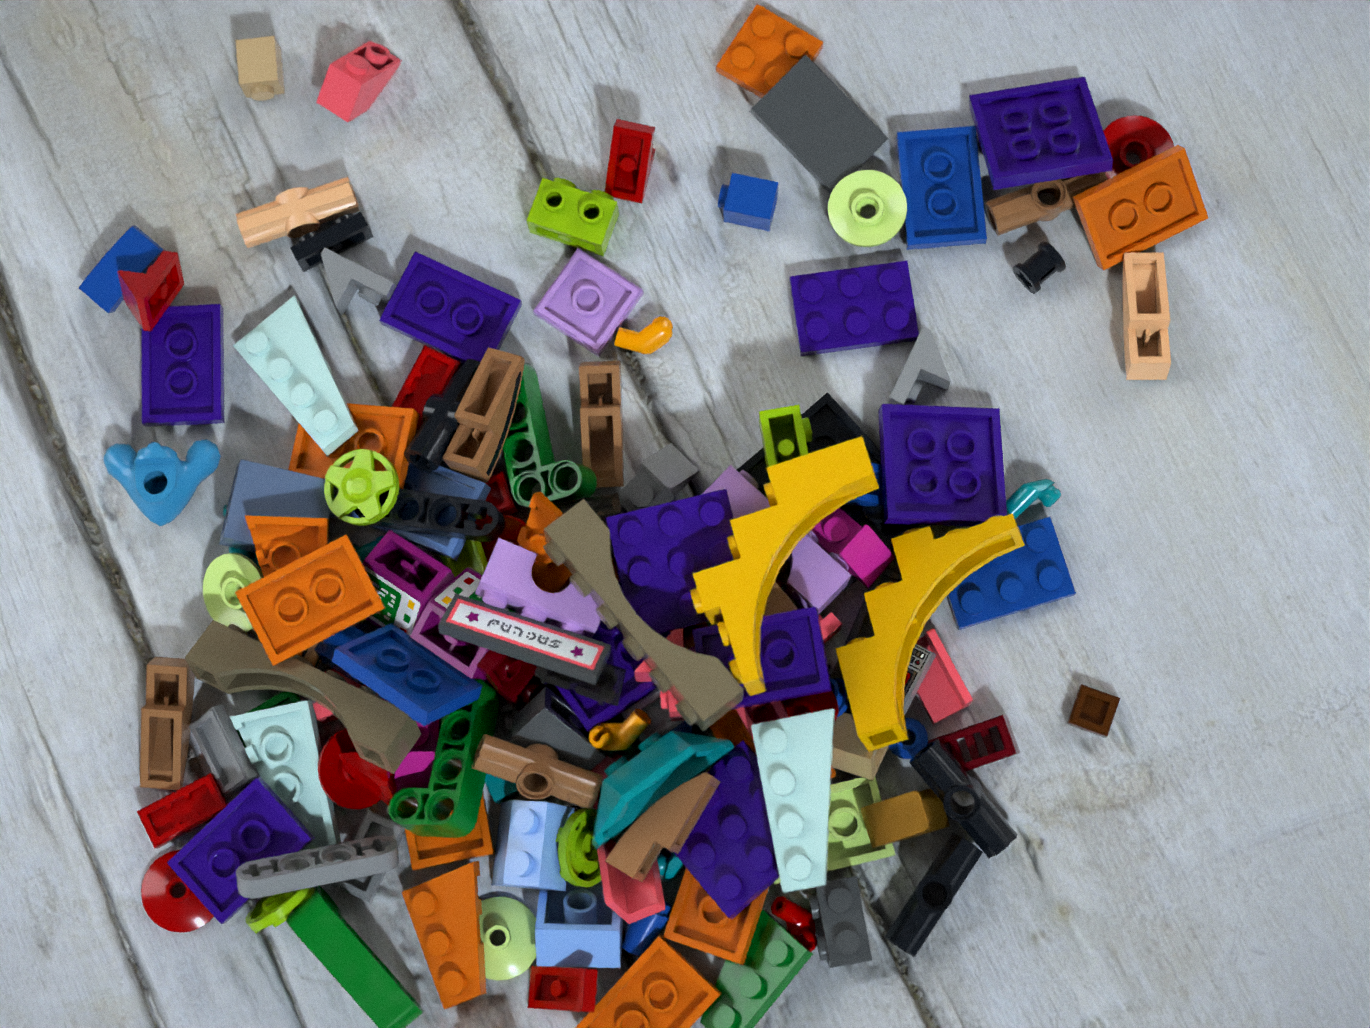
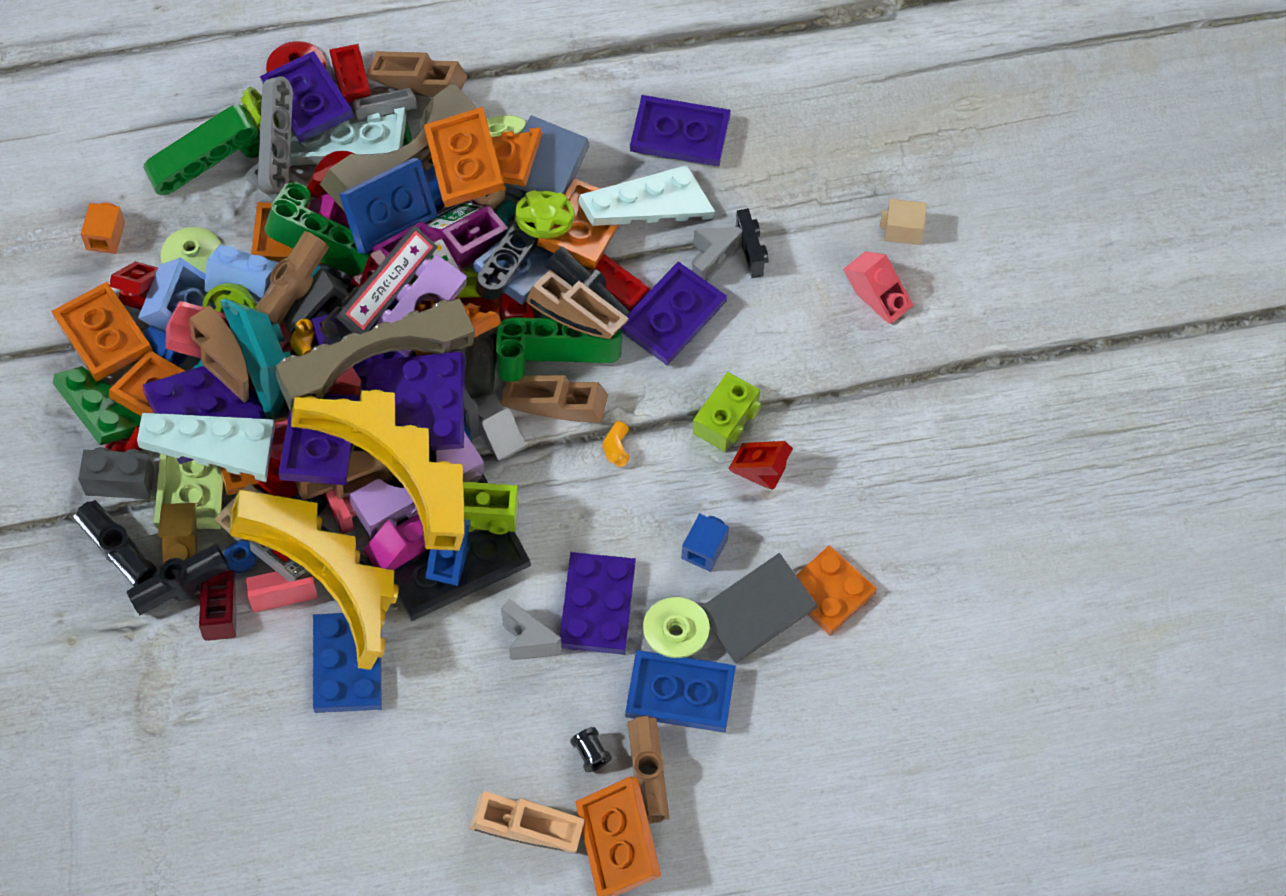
camera: 95 degrees right, 15 degrees down
(130, 253) = (766, 103): blue slope -> none
(152, 292) = (735, 112): red slope -> none
(158, 478) = (593, 98): dark azure head -> none
(297, 212) = (780, 226): light nougat piece -> none
(448, 930) = (207, 218): orange wing -> none
(588, 302) = (655, 412): lavender tile -> none
(941, 464) = (443, 627): dark purple plate -> none
(1030, 492) = (404, 692): teal arm -> none
(1040, 133) = (703, 772): dark purple plate -> none
(1093, 711) = (216, 700): reddish brown tile -> none
(1137, 136) = (685, 841): red dish -> none

